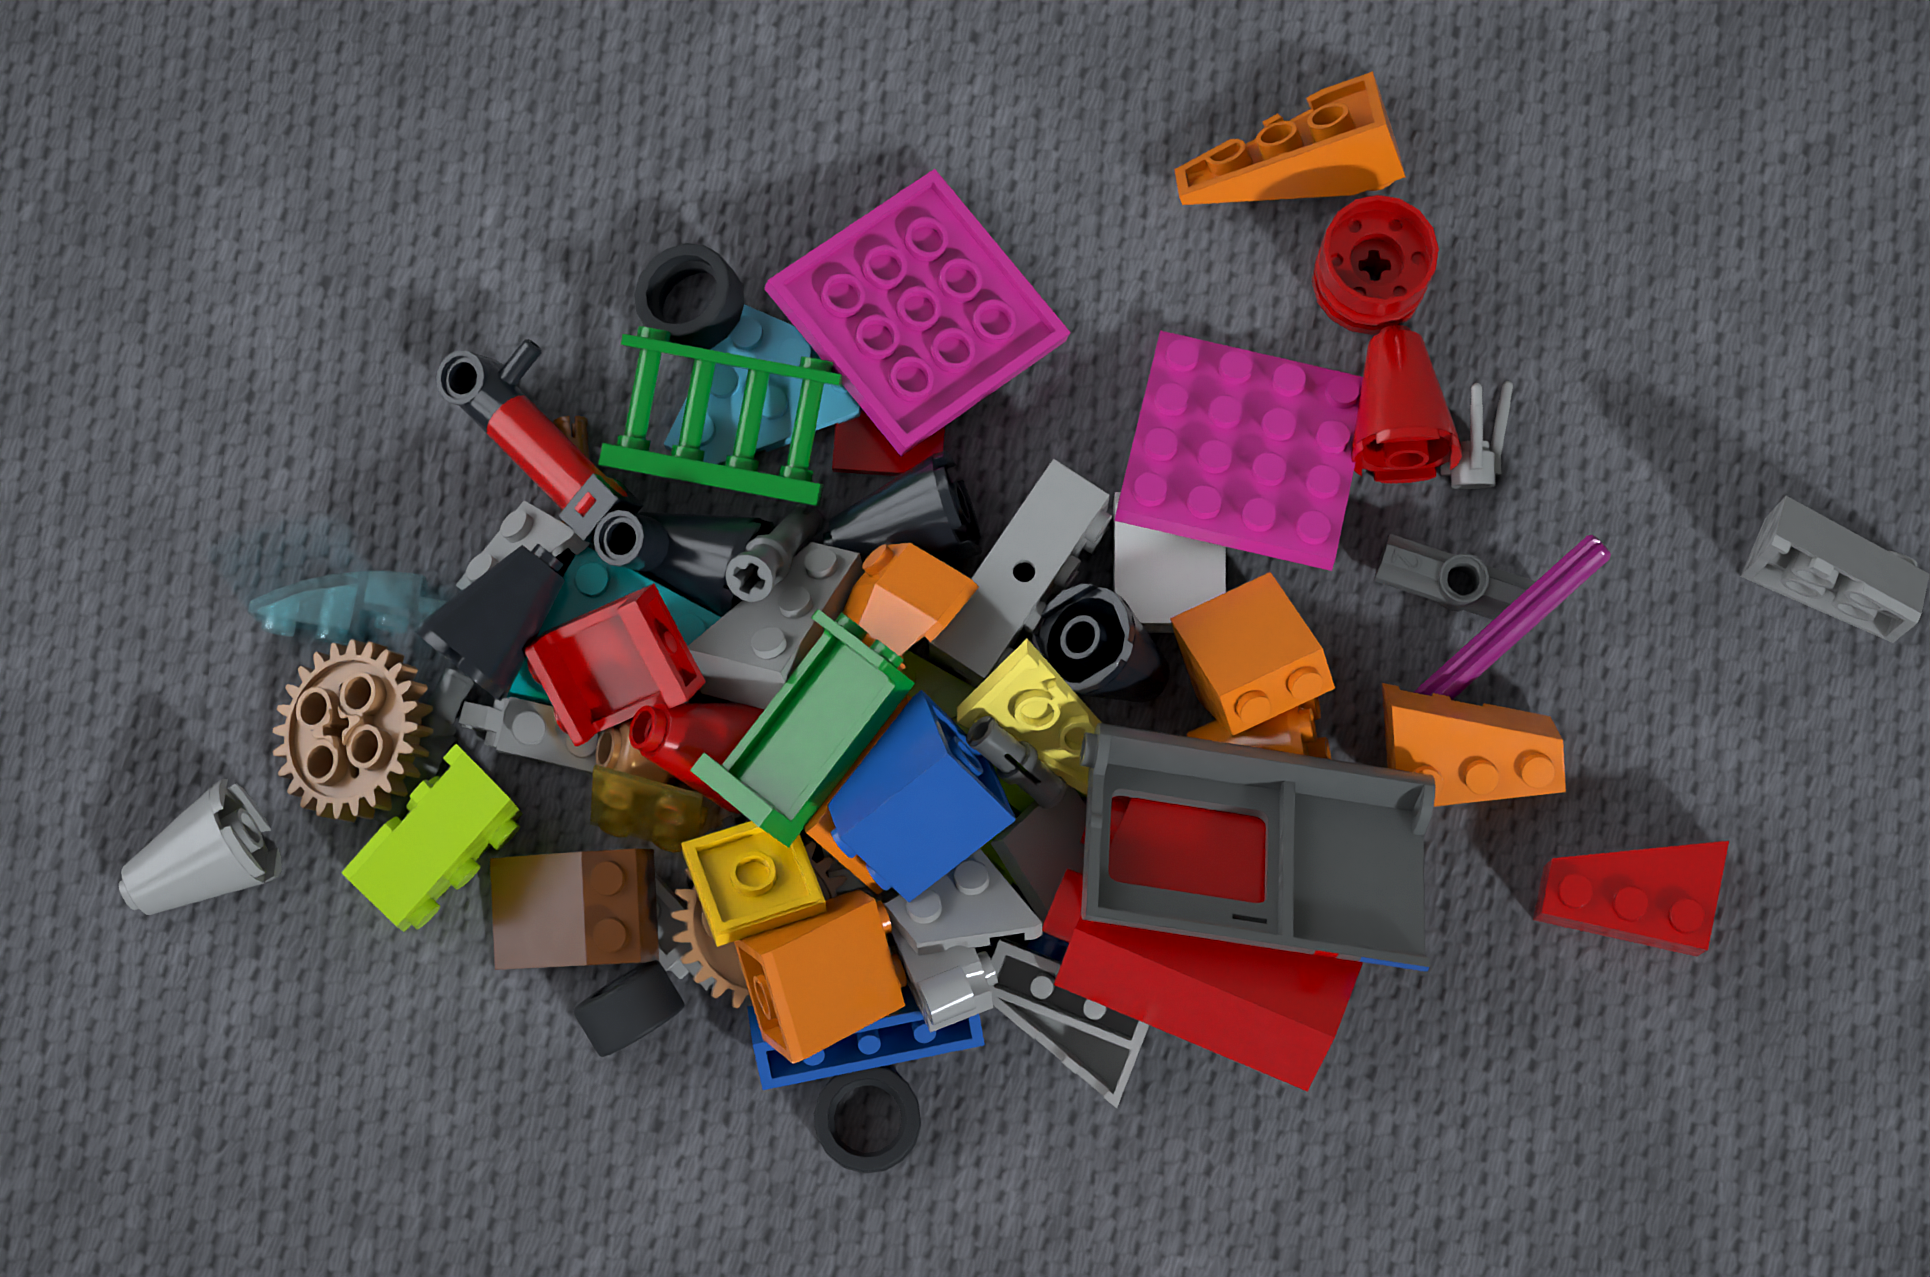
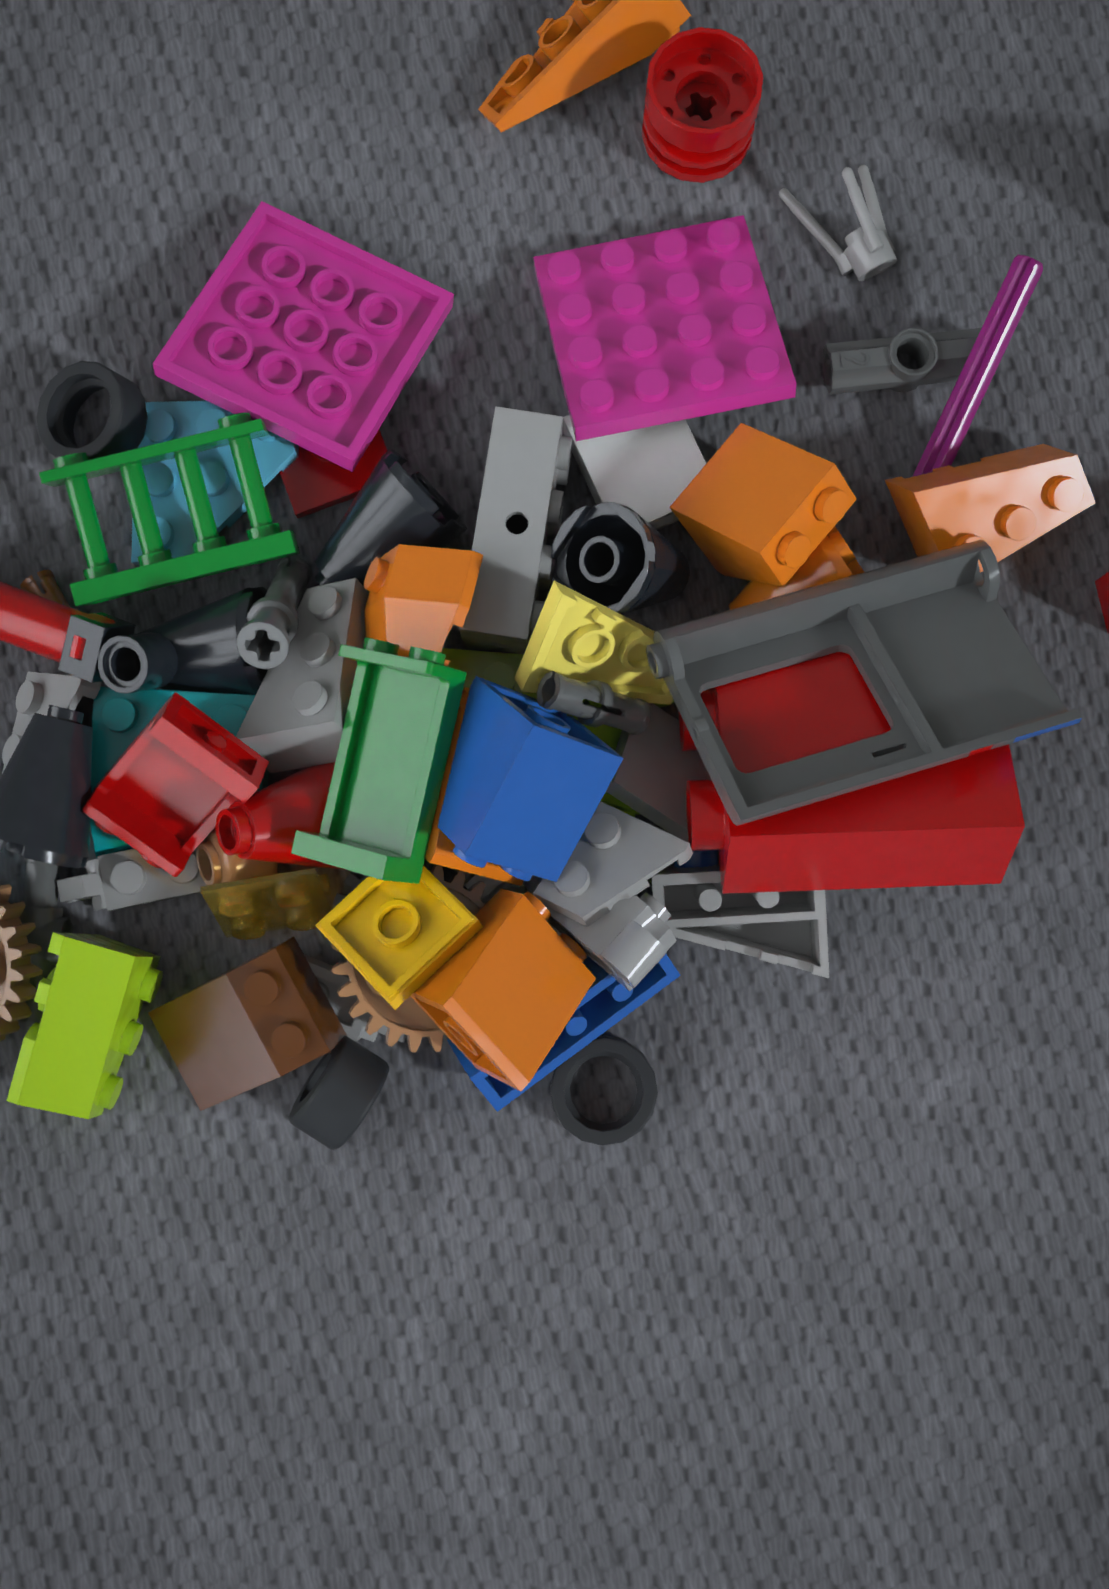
camera: 25 degrees left, 5 degrees up
(1402, 412) = (787, 229): red cone -> none

